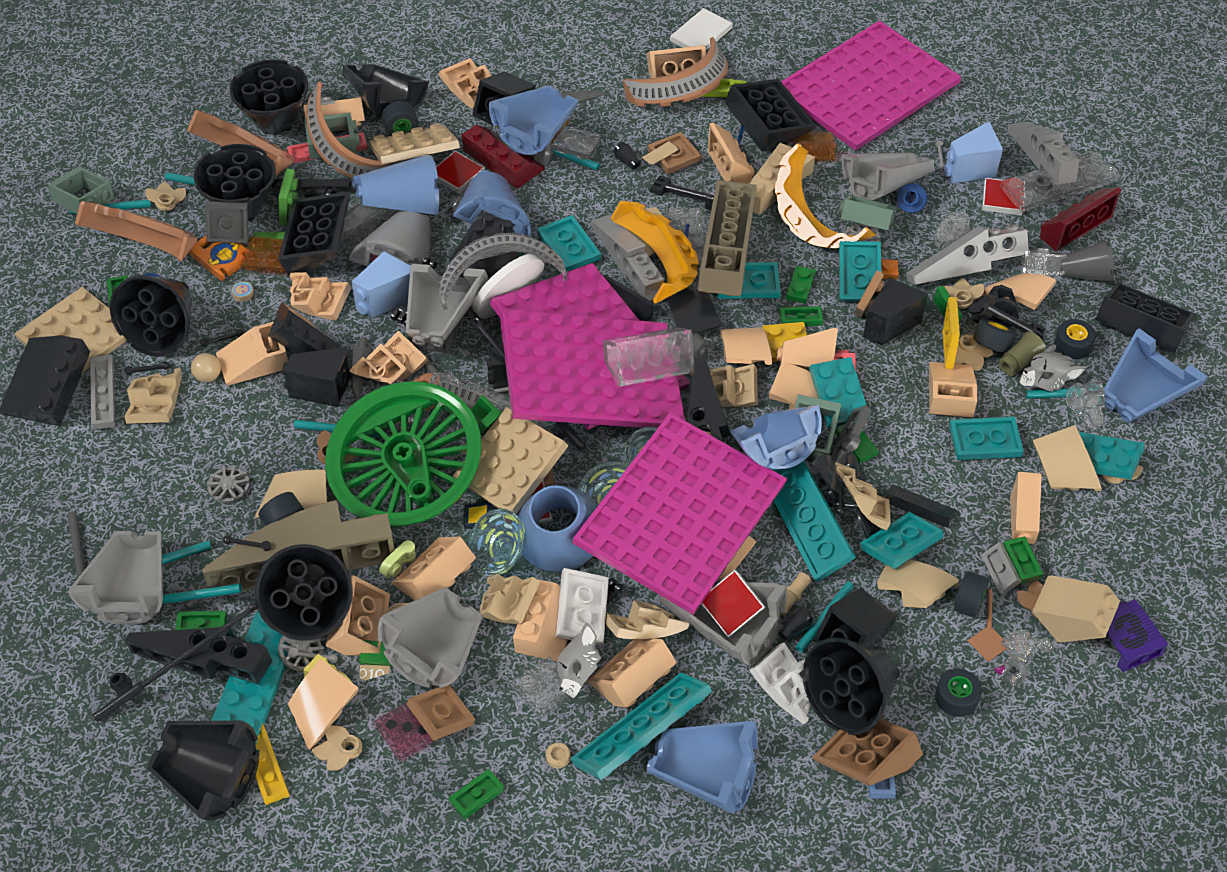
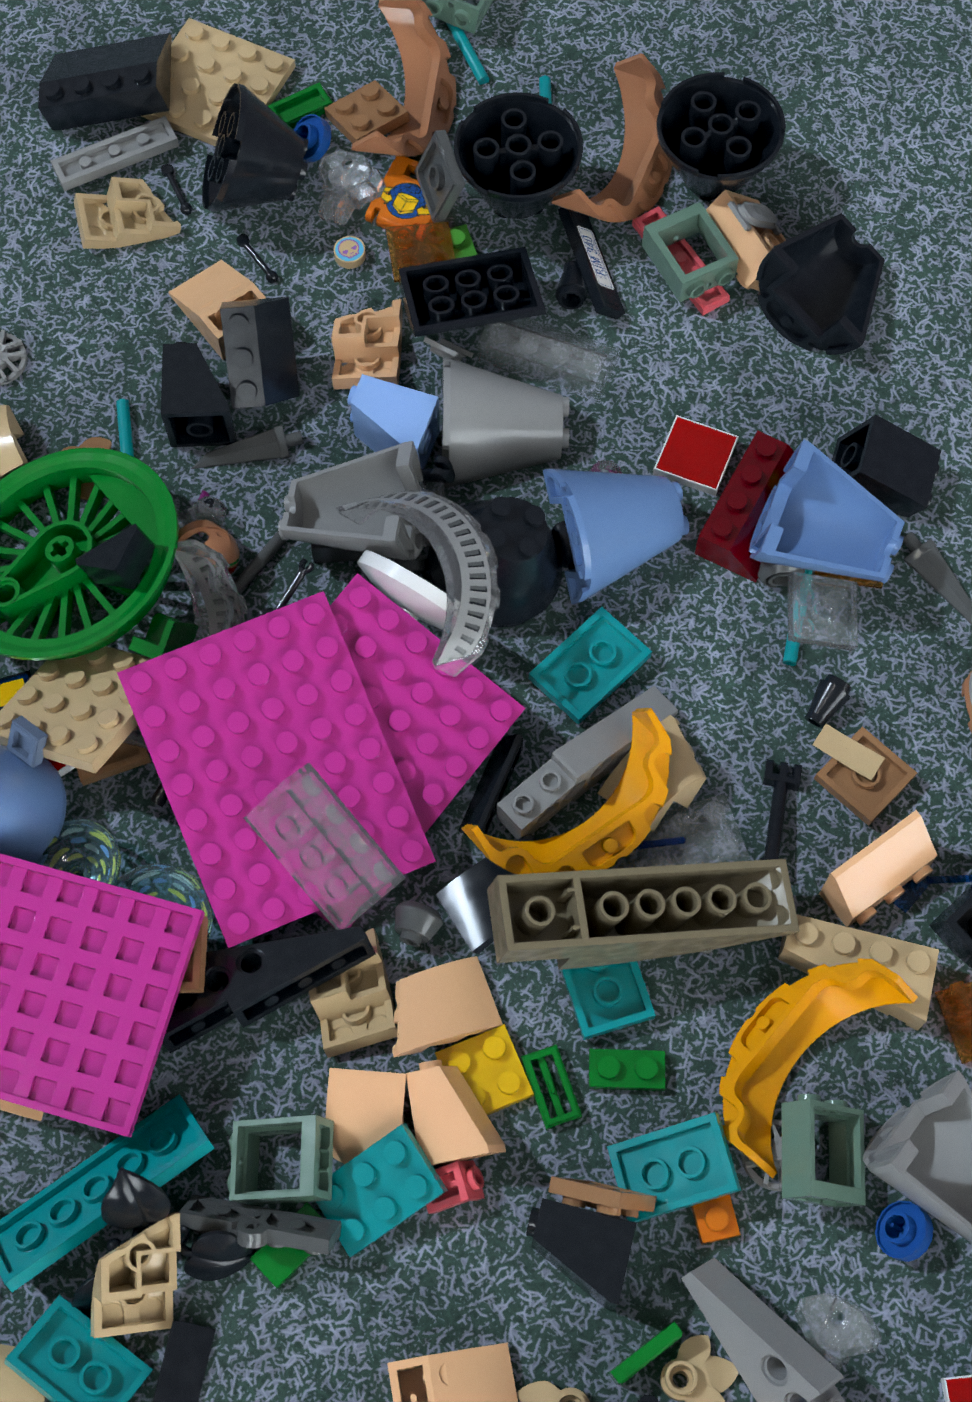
camera: 75 degrees right, 15 degrees up
(146, 258) = (366, 111): none -> medium nougat plate
(165, 197) = (496, 83): tan plate -> none
(198, 273) = (347, 185): none -> clear hinge
(205, 367) = (185, 256): tan piece -> none
(287, 195) = (541, 235): bright green plate -> none
(329, 147) = (645, 271): windscreen -> none
(341, 255) = (448, 349): none -> light grey piece
(391, 362) = (254, 483): light nougat slope -> none
(399, 117) = (763, 334): black wheel -> none
(401, 186) = (599, 378): medium blue cone -> none
(413, 144) = (707, 369): tan plate -> none
(433, 412) = (118, 559): none -> black slope
(464, 80) = (913, 400): light nougat slope -> none
(532, 480) = (27, 741): none -> sand blue tile
(781, 437) = (204, 1091): medium blue cone -> none
(950, 332) = (557, 1368): yellow tile -> none

